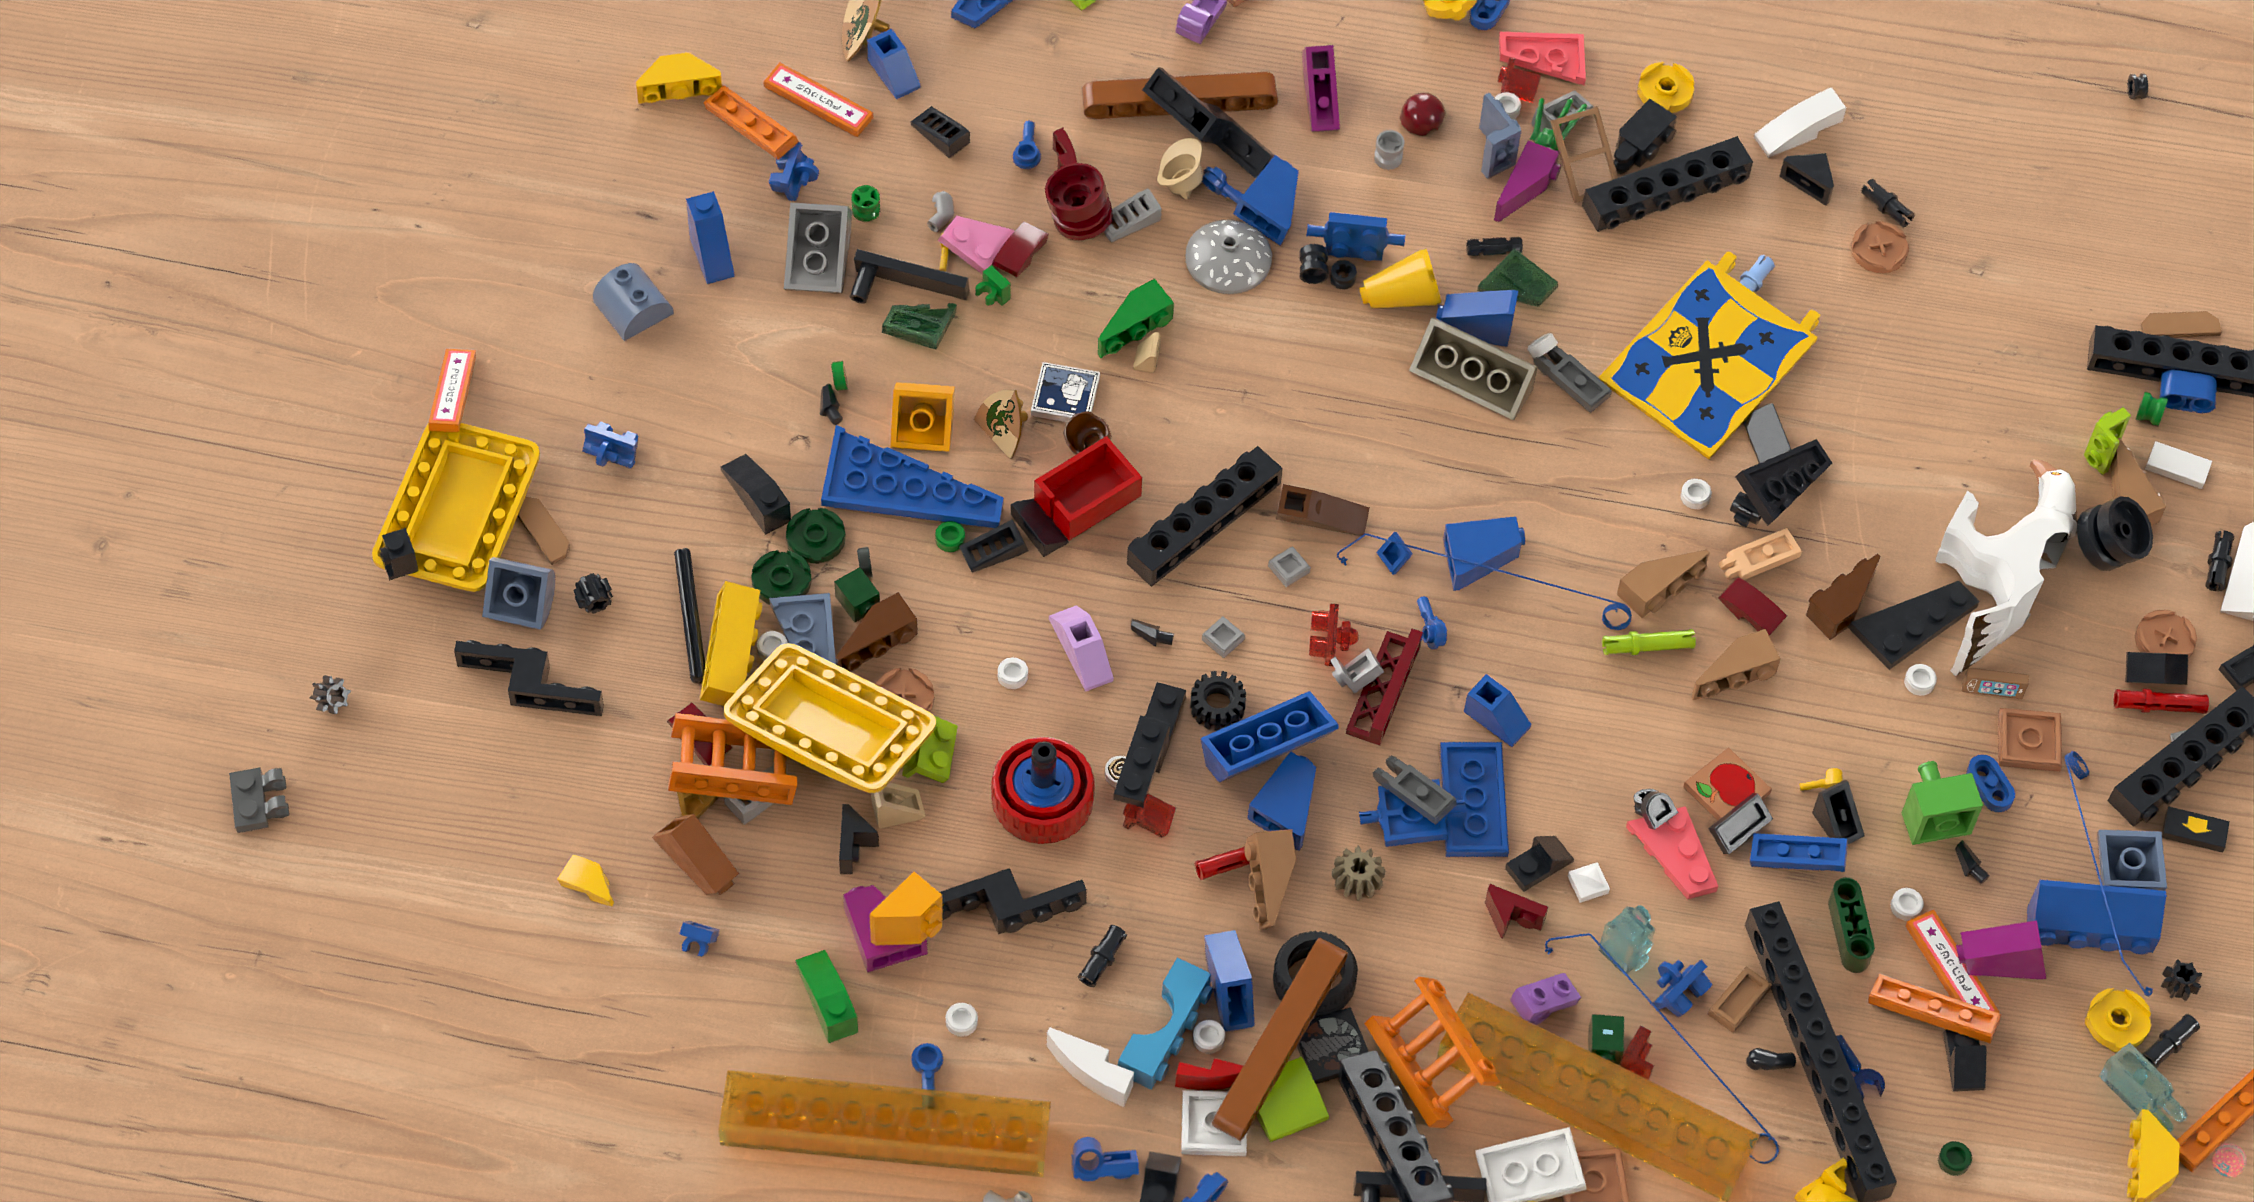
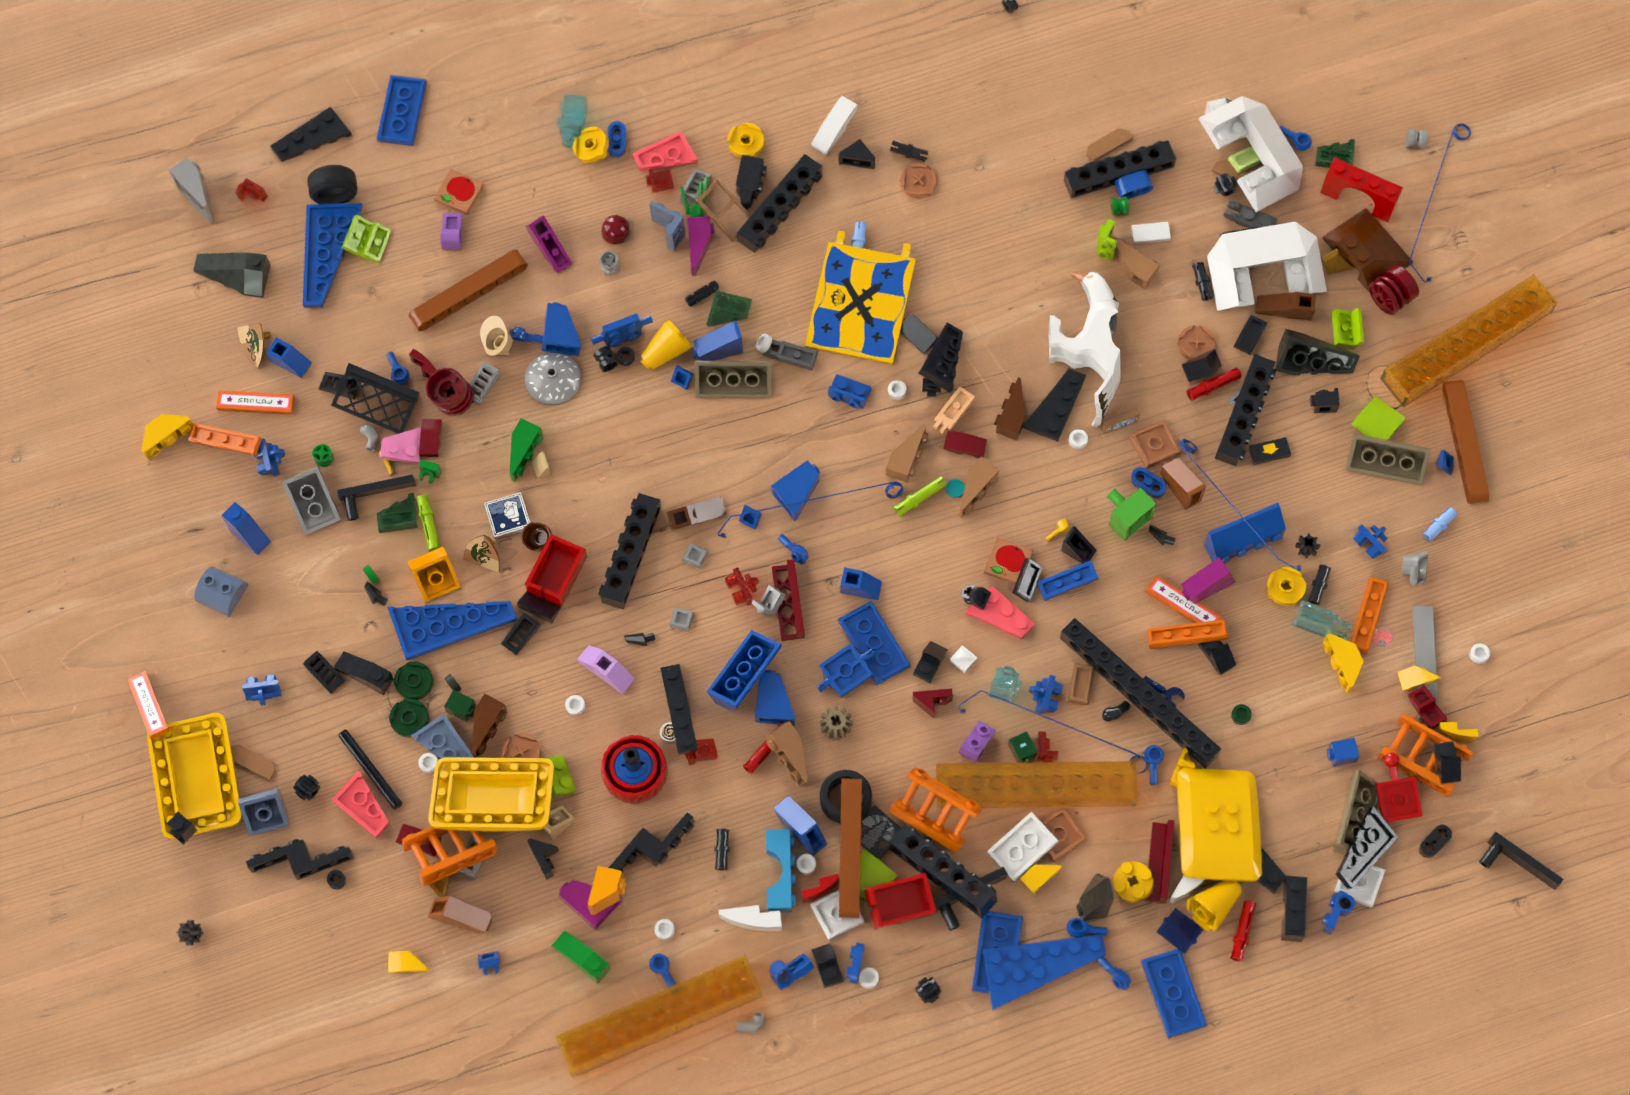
camera: 25 degrees left, 10 degrees up
(249, 800) = (180, 1021): dark grey plate -> none
(561, 738) = (336, 886): none -> black bush
(651, 653) = (361, 805): none -> coral wing
(698, 447) = (312, 660): none -> black slope
(730, 642) = (405, 776): yellow brick -> none
(950, 536) = (491, 640): green tile -> none
(956, 341) = (426, 516): none -> lime pin
(993, 148) = (382, 384): none -> black fence
(1207, 122) = (496, 301): black bracket -> none
(1219, 685) = (705, 671): black tyre -> none
(1310, 1146) = (900, 901): none -> red piece
(1404, 335) = (681, 377): none -> blue slope
(1416, 790) = (842, 658): dark grey hinge -> none
(1511, 104) = (661, 196): white tile -> none
(1627, 463) = (849, 391): none -> blue bracket
(1704, 656) = (955, 488): none -> teal piece
(1792, 1147) = (1153, 755): none -> blue plate
(1862, 938) = (1109, 606): dark green beam -> none
(1906, 904) = (1140, 578): white tile -> none
(2041, 807) = (1183, 482): none -> slope
(2114, 533) = (1140, 297): black wheel -> none
(2132, 859) = (1249, 492): sand blue brick -> none

